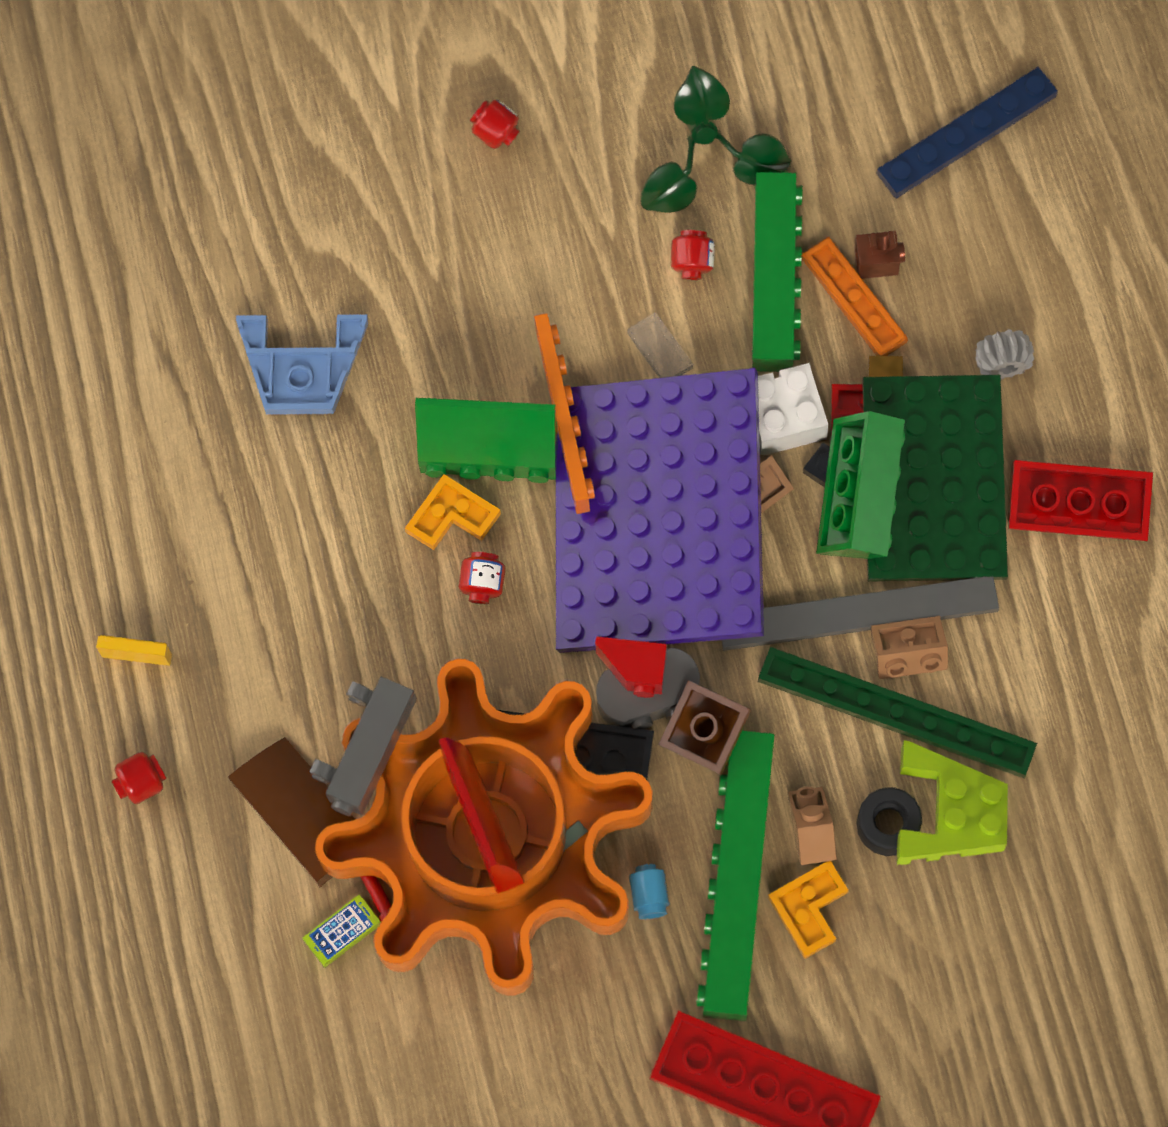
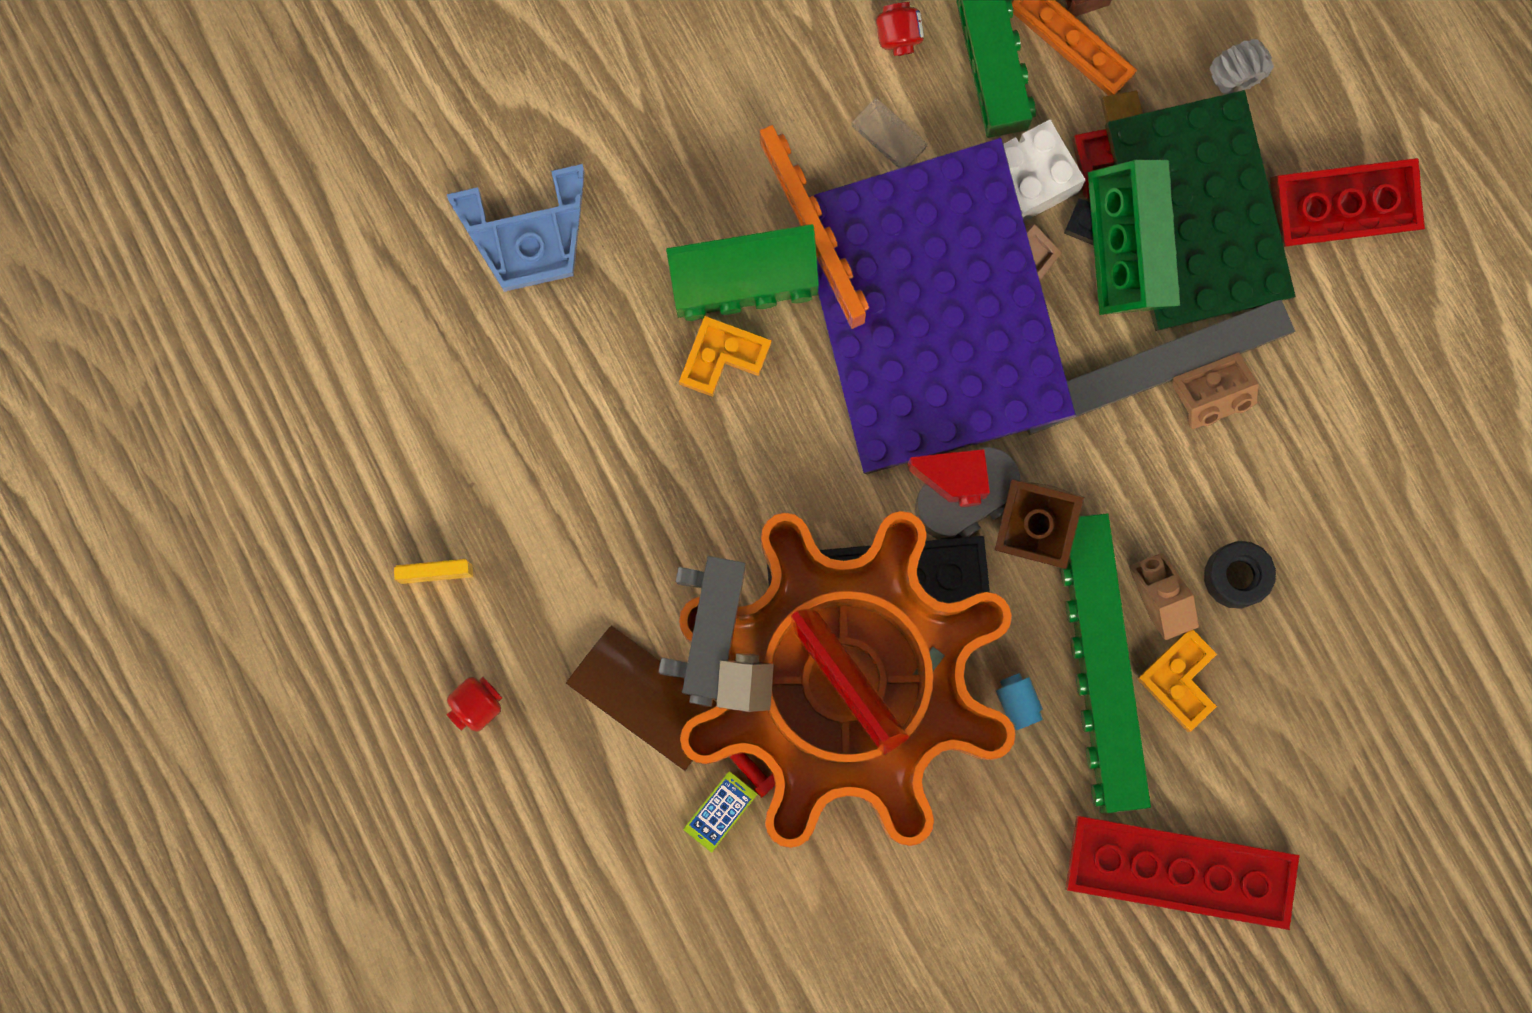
camera: 20 degrees left, 10 degrees up
(385, 798) = (745, 683): none -> dark tan brick
(482, 577) = (771, 415): head -> none
(897, 712) = (1220, 461): dark green plate -> none
(968, 809) = (1315, 546): lime wing -> none

